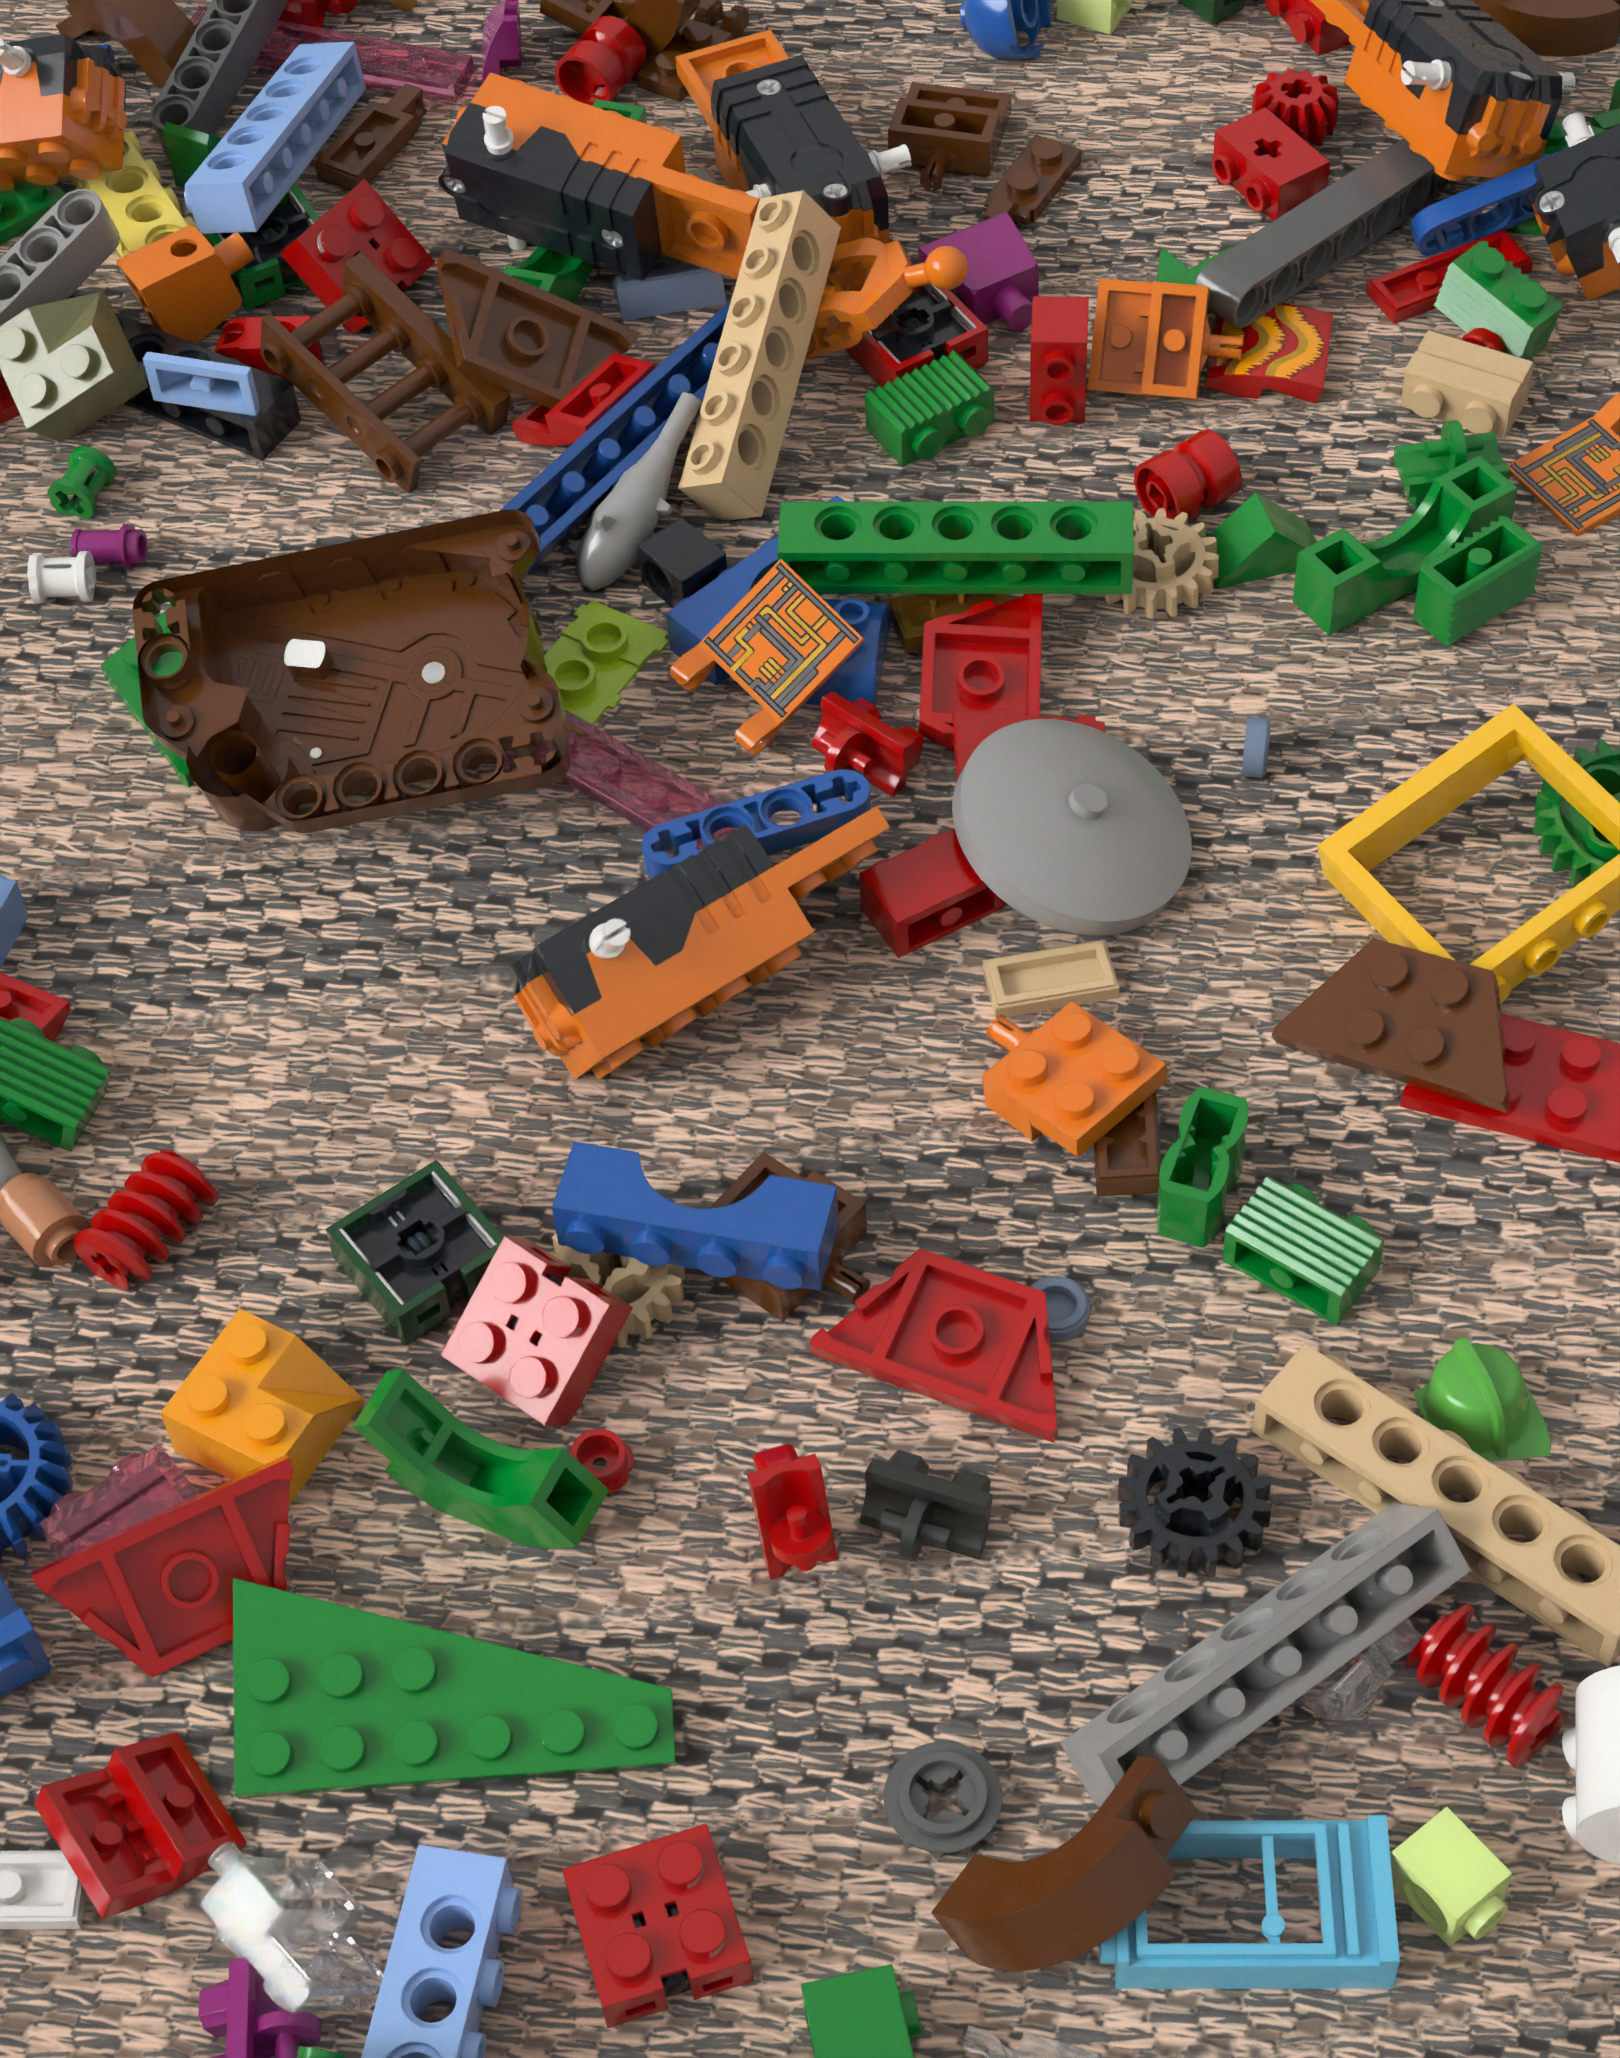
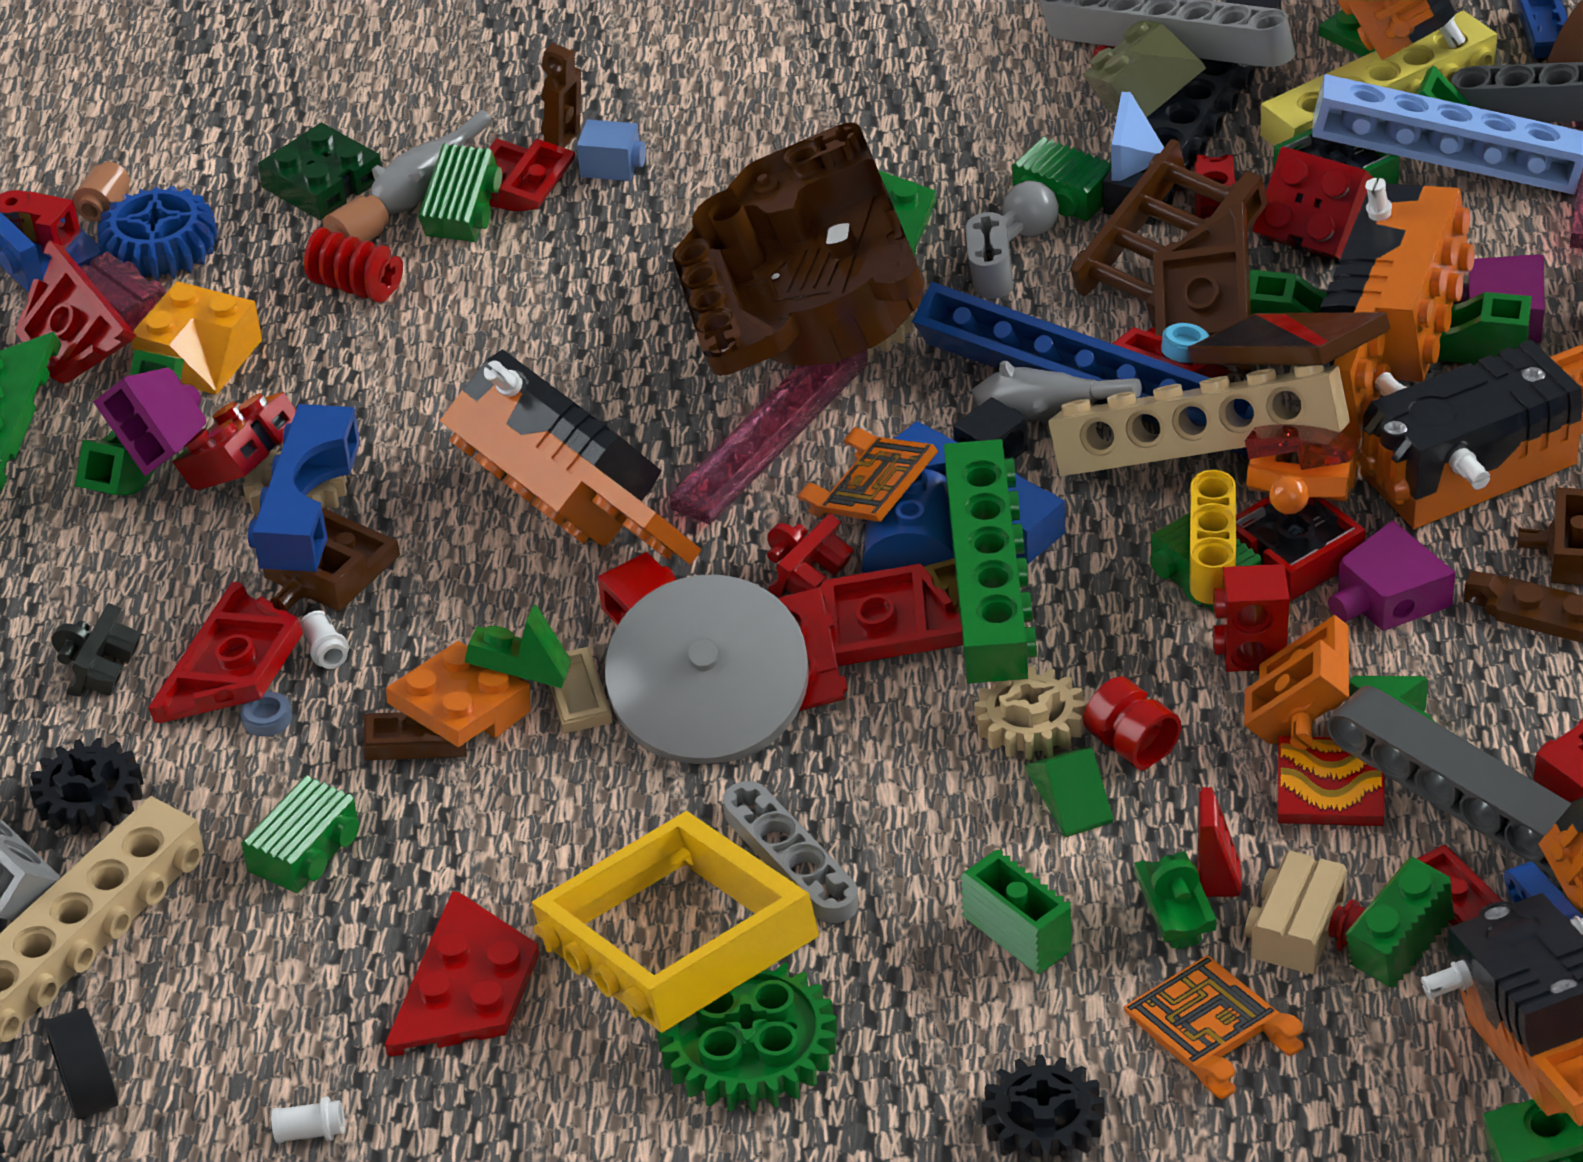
camera: 85 degrees right, 10 degrees down
(61, 577) = (954, 127): white bush -> none
(81, 482) = (1059, 125): green bush -> none
(112, 546) = (986, 152): magenta pin -> none
(187, 281) = (1251, 115): orange torso -> none
(208, 476) = (1069, 173): none -> green brick
(269, 505) = (1027, 211): none -> light grey beam
(372, 139) = (1507, 205): reddish brown hinge -> none
(416, 1250) = (322, 375): piece -> none
(481, 1396) = (152, 415): none -> magenta torso
(600, 657) = (892, 408): lime piece -> none
(603, 365) = (1178, 338): none -> medium azure tile
(607, 1447) = (151, 498): red plate -> none
(688, 241) = (1289, 338): none -> reddish brown tile
(756, 814) = (704, 495): blue beam -> none
(791, 1510) = (75, 577): red hips -> none
(851, 258) = (1313, 444): none -> clear red slope
(941, 1236) = (327, 646): none -> white pin
(949, 363) = (1211, 531): none -> yellow beam
(1036, 998) = (533, 657): none -> green slope
(1201, 1166) = (368, 763): green brick -> none
(1256, 747) = (818, 786): sand blue tile -> none
(1339, 779) = (794, 850): none -> light grey beam
(1348, 579) = (1106, 901): green arch -> none
(1394, 425) = (1216, 853): none -> red slope
(1409, 1022) = (505, 879): reddish brown wing -> none
(1485, 1402) = (164, 947): bright green piece -> none

